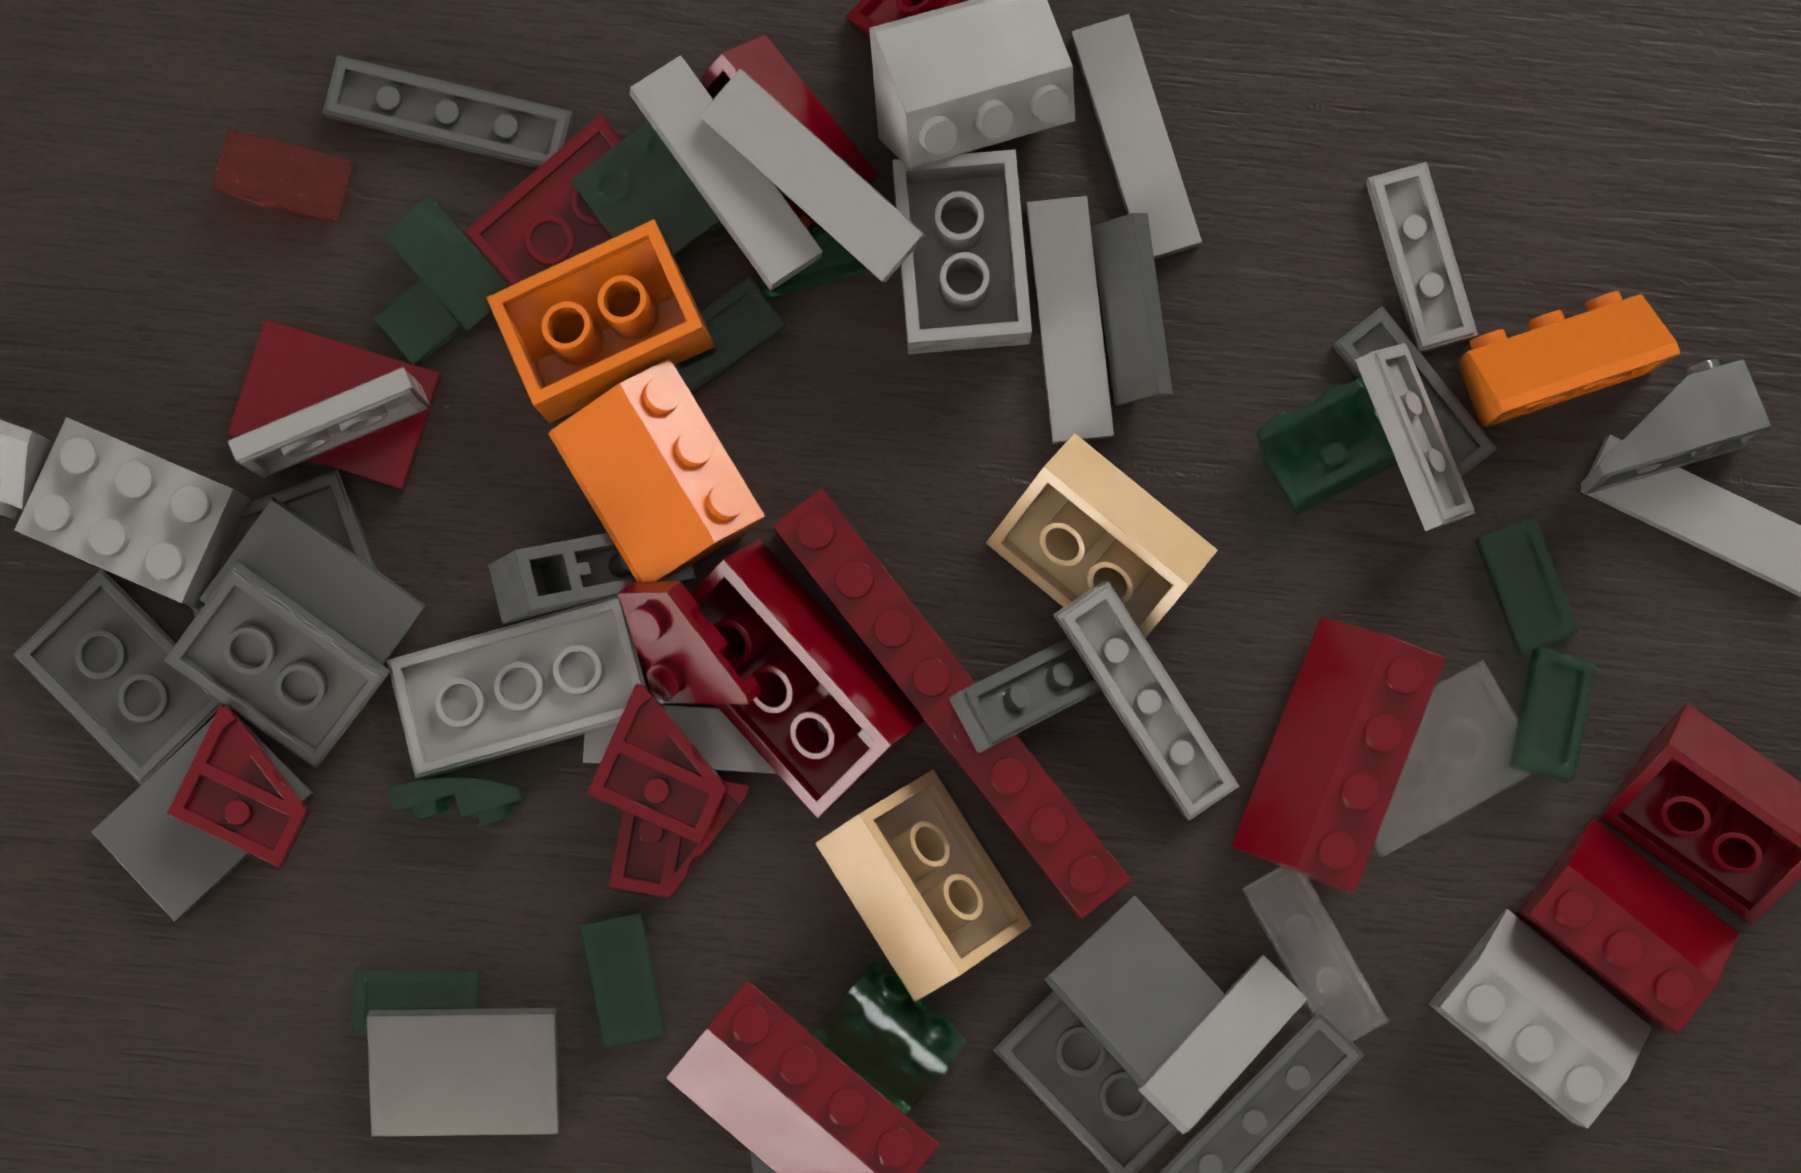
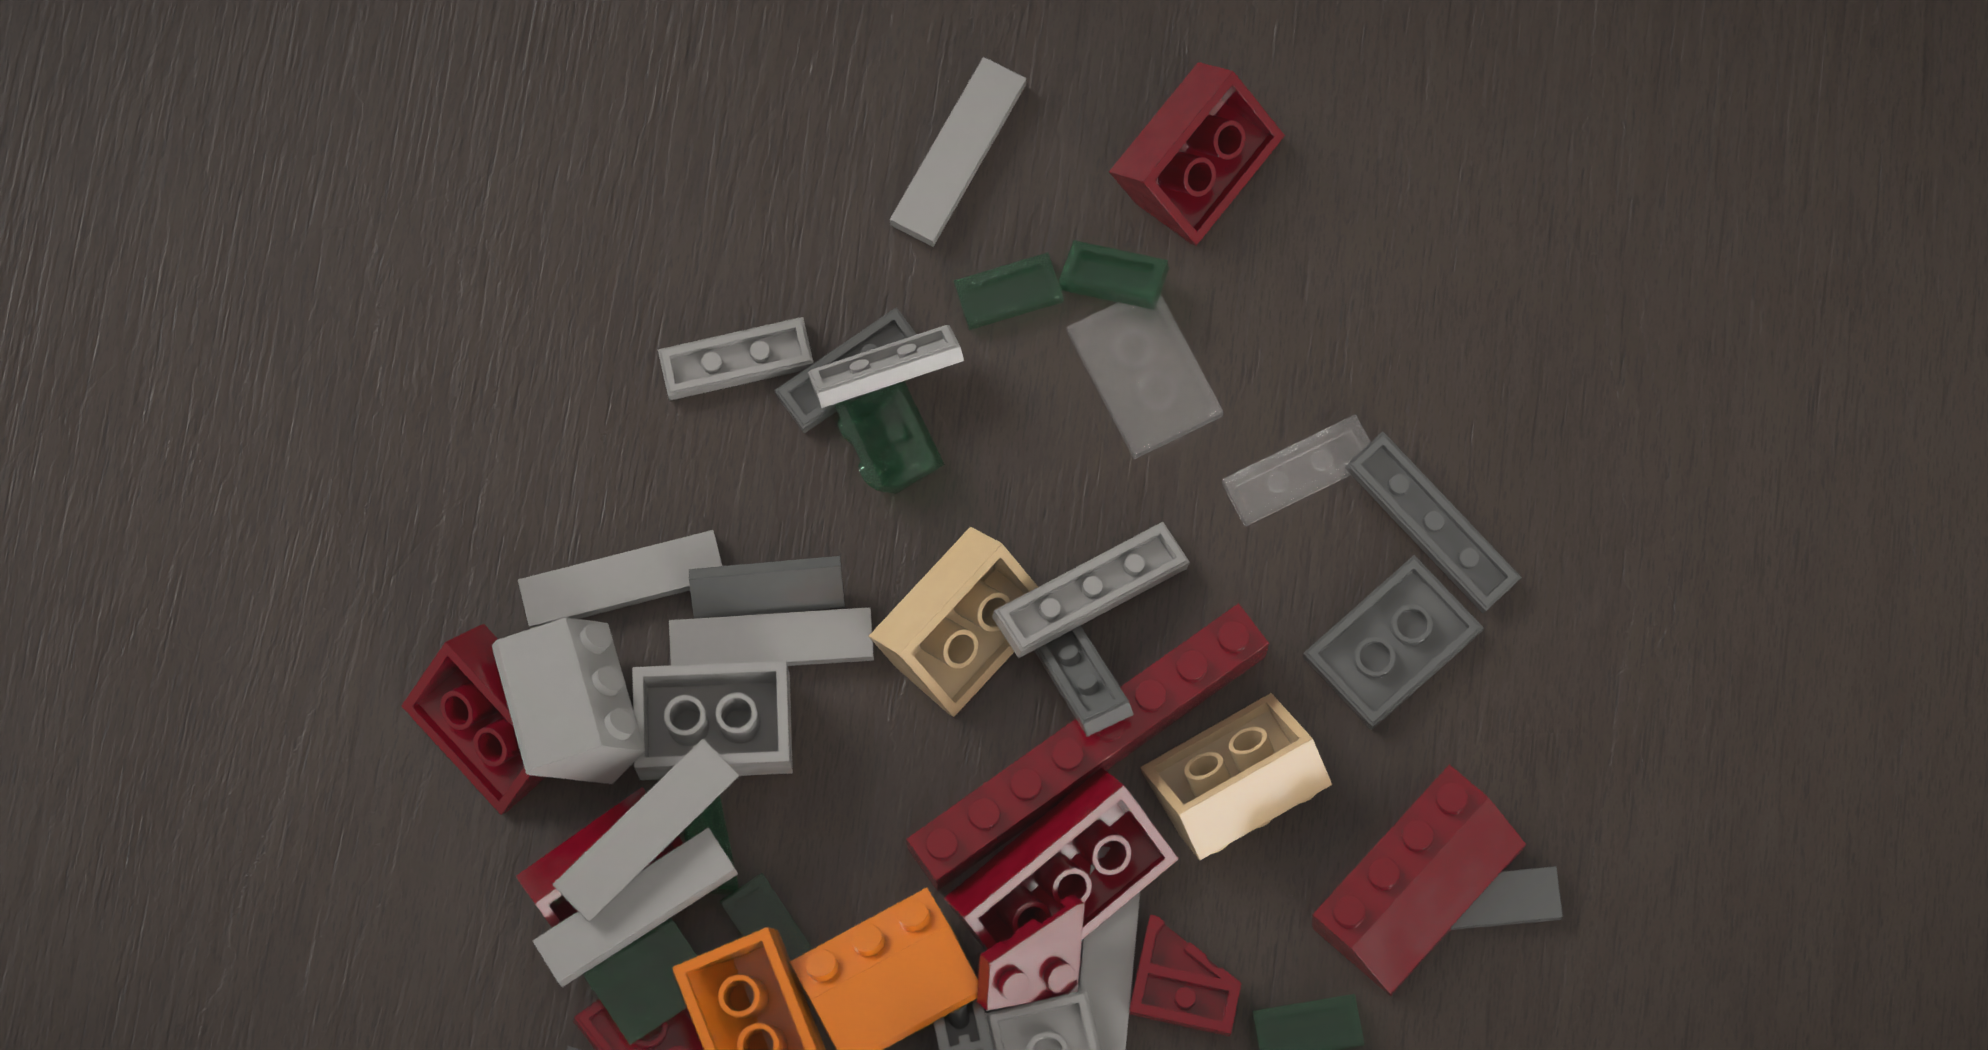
camera: 85 degrees left, 10 degrees down
(658, 771) = (1137, 984): dark red wing -> none
(890, 1037) = (1359, 806): clear green bracket -> none
(1135, 989) = (1340, 597): dark grey tile -> none
(1222, 1044) = (1372, 540): light grey tile -> none
(1338, 753) = (1140, 438): dark red slope -> none
(1543, 1019) = (1357, 296): light grey slope -> none
(1564, 357) = (827, 249): orange slope -> none
(1631, 927) = (1285, 226): dark red slope -> none
(1700, 419) = (883, 154): dark grey slope -> none

